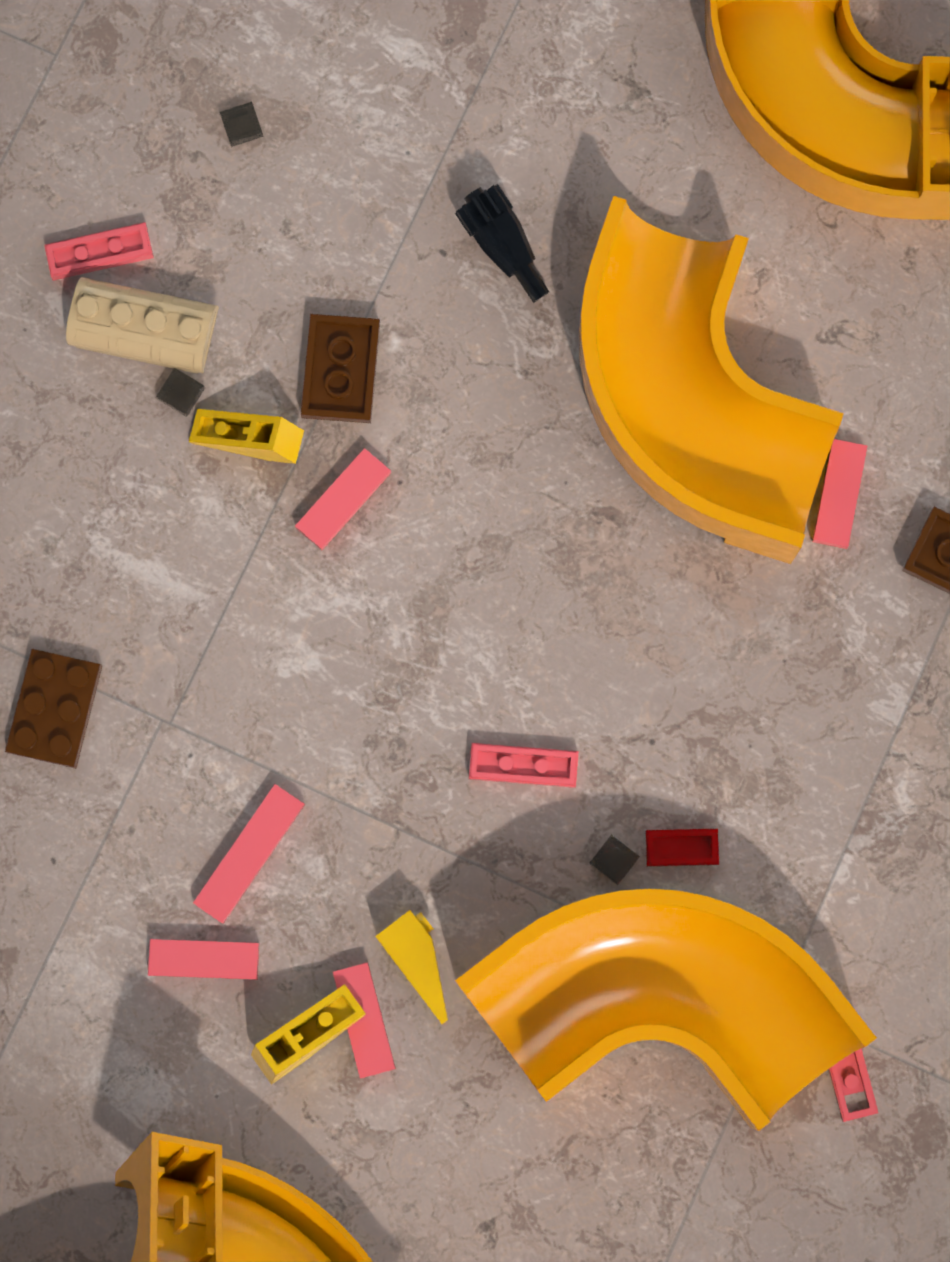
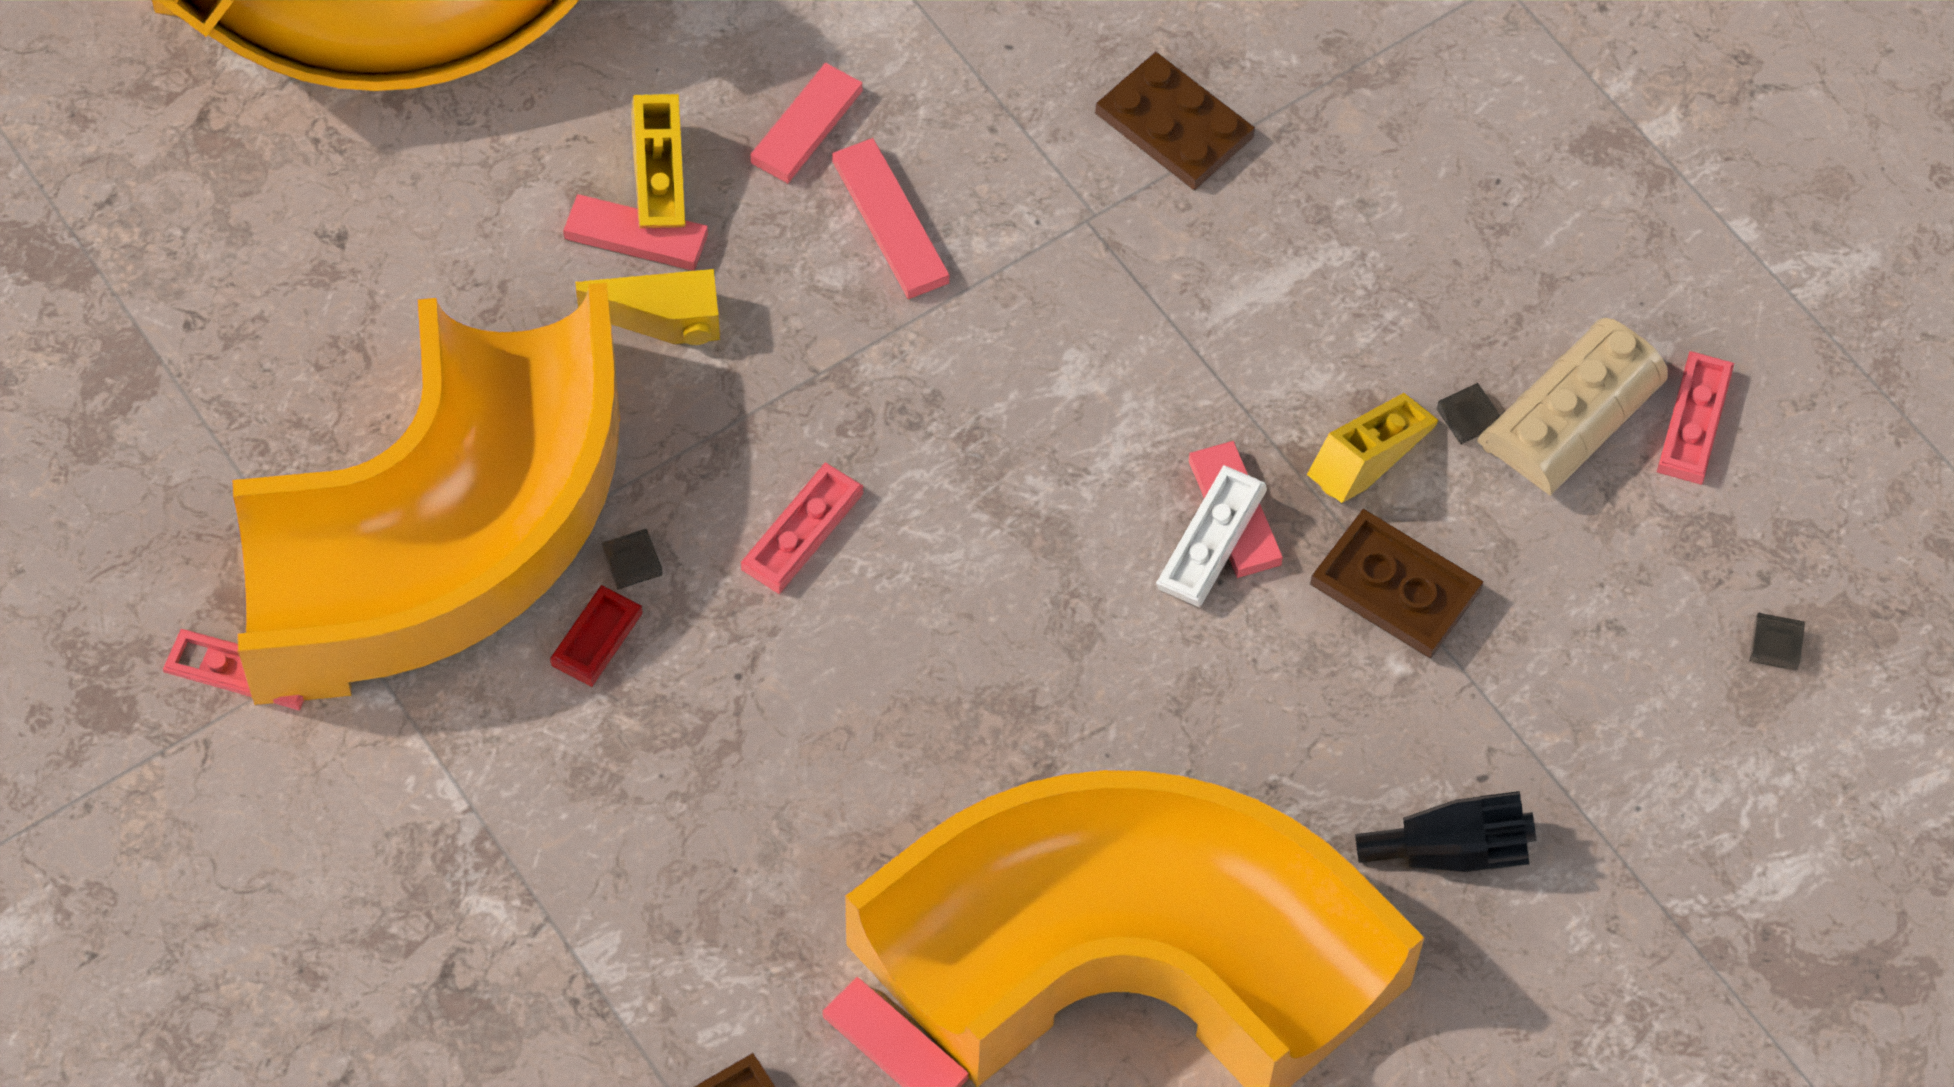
camera: 115 degrees right, 20 degrees down
(377, 498) = (1211, 536): none -> white tile

